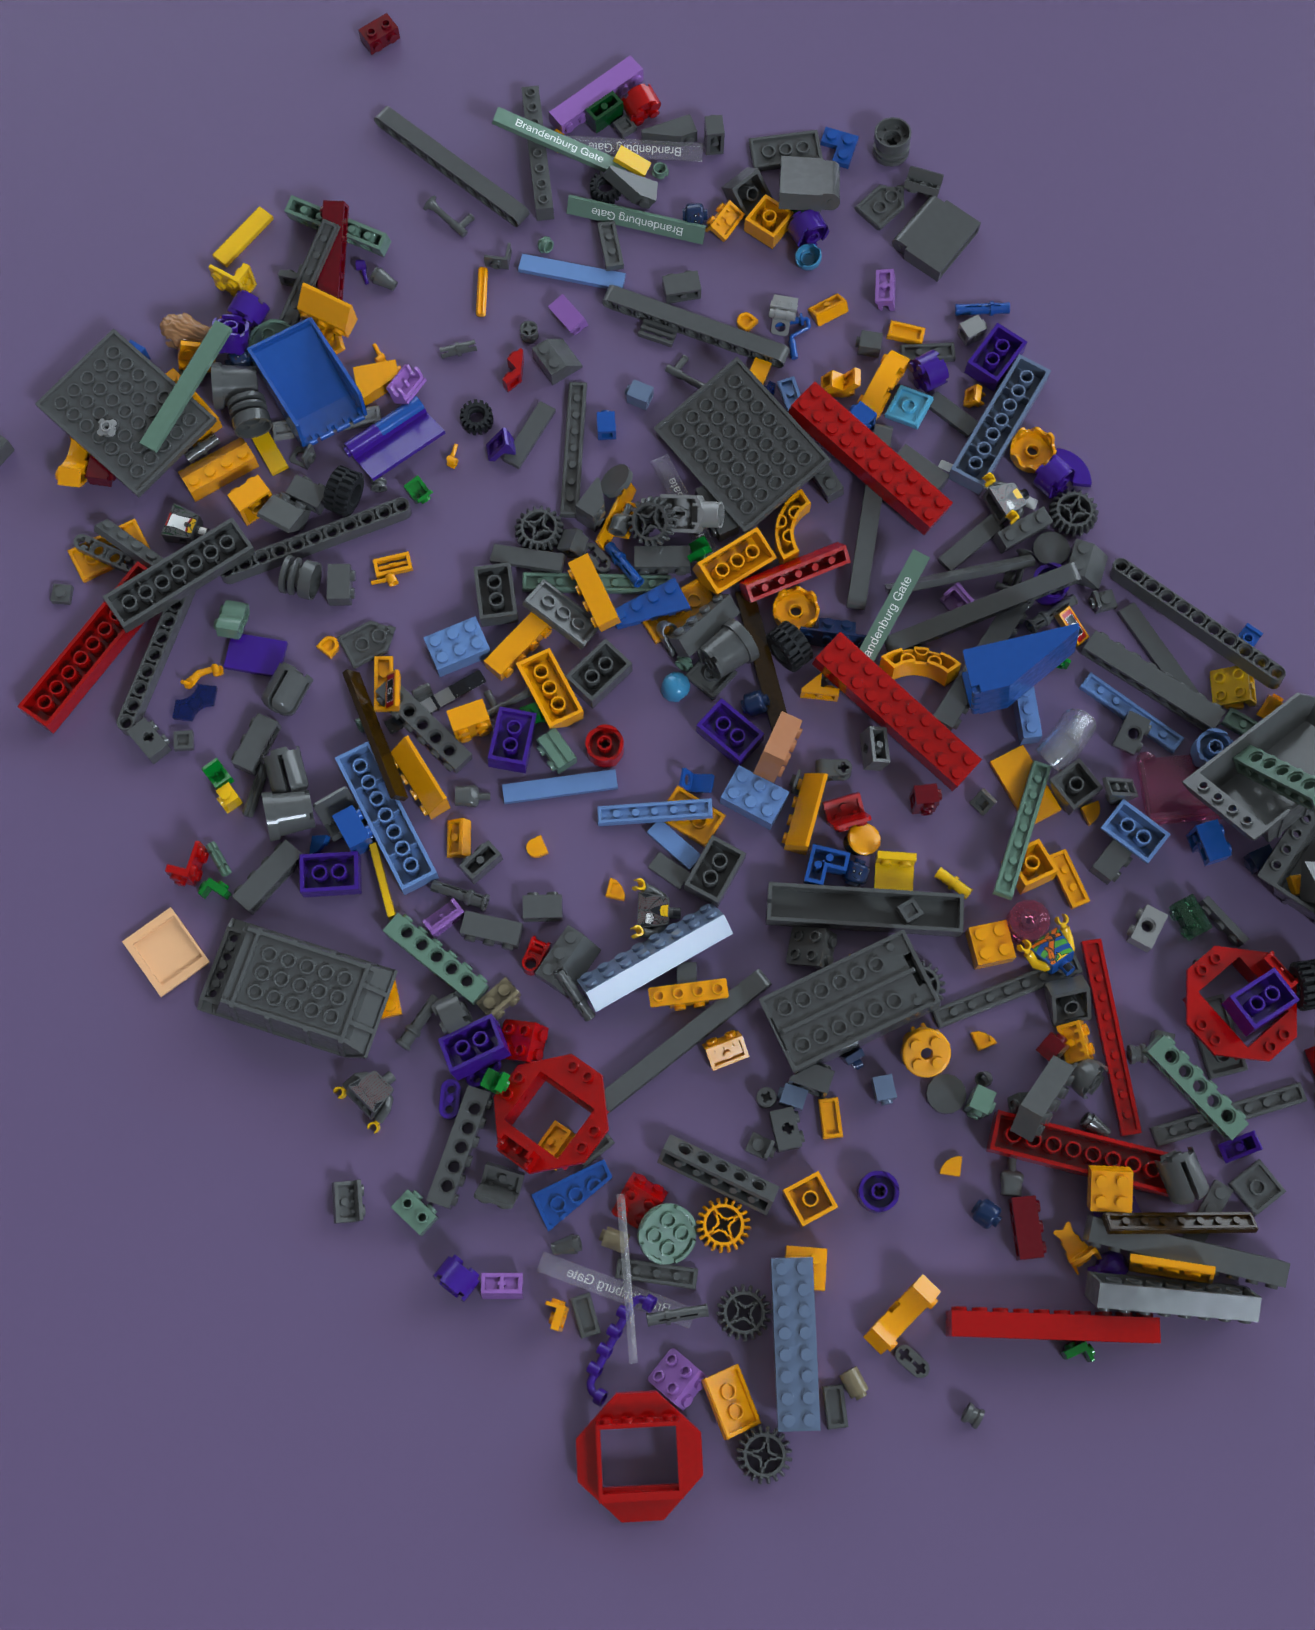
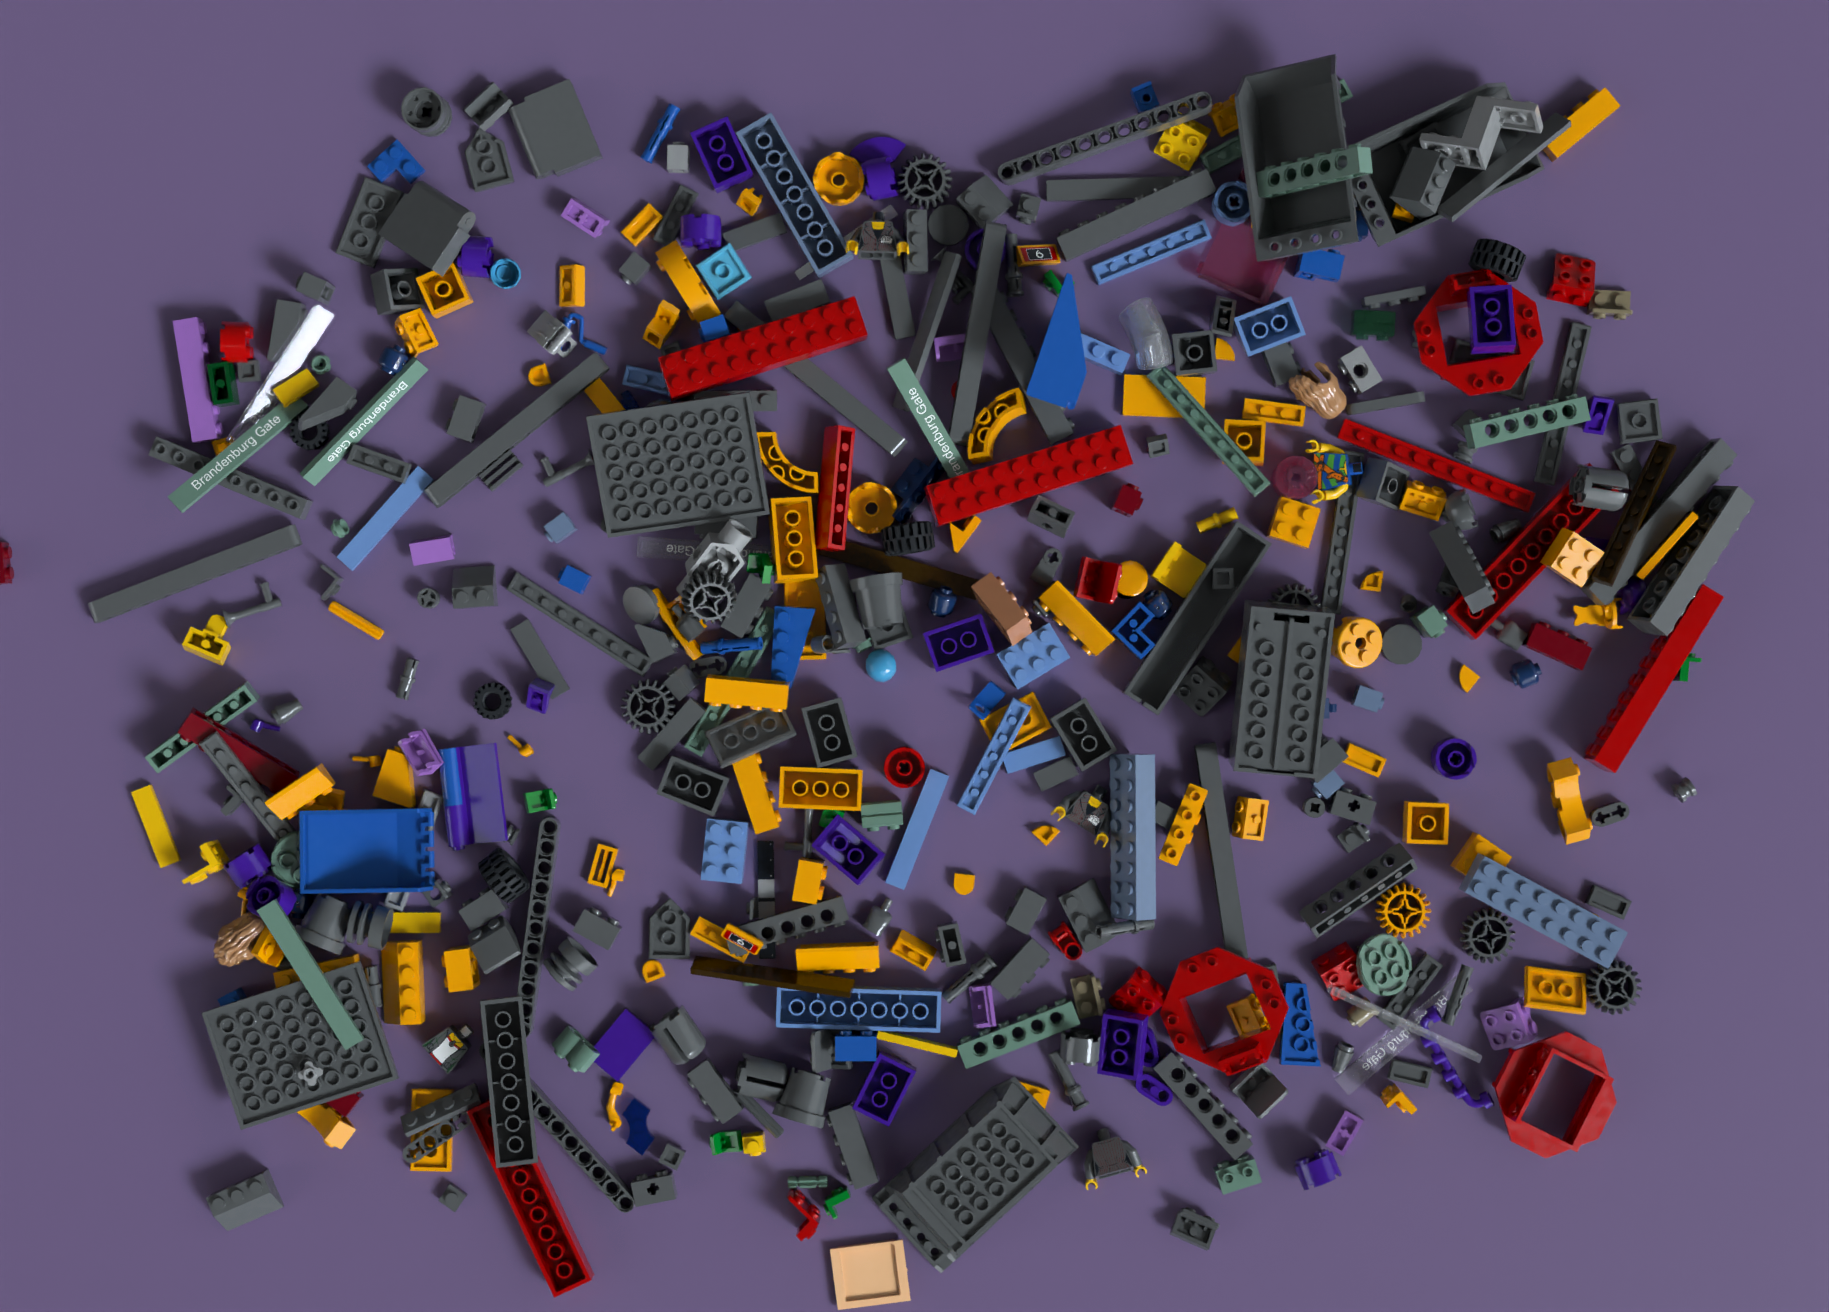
camera: 55 degrees left, 15 degrees up
(318, 843) = (846, 1083): blue tile -> none
(405, 199) = (209, 642): none -> yellow brick
(495, 1081) = (1165, 1042): green bracket -> none
(516, 364) = (456, 629): red slope -> none
(854, 1383) = (1599, 875): dark tan brick -> none
(1052, 1045) = (1417, 524): dark red brick -> none
(1107, 904) = (1323, 398): none -> medium nougat hair
(1123, 741) = (1163, 261): dark grey brick -> none
(1134, 965) = (1385, 403): none -> dark grey beam

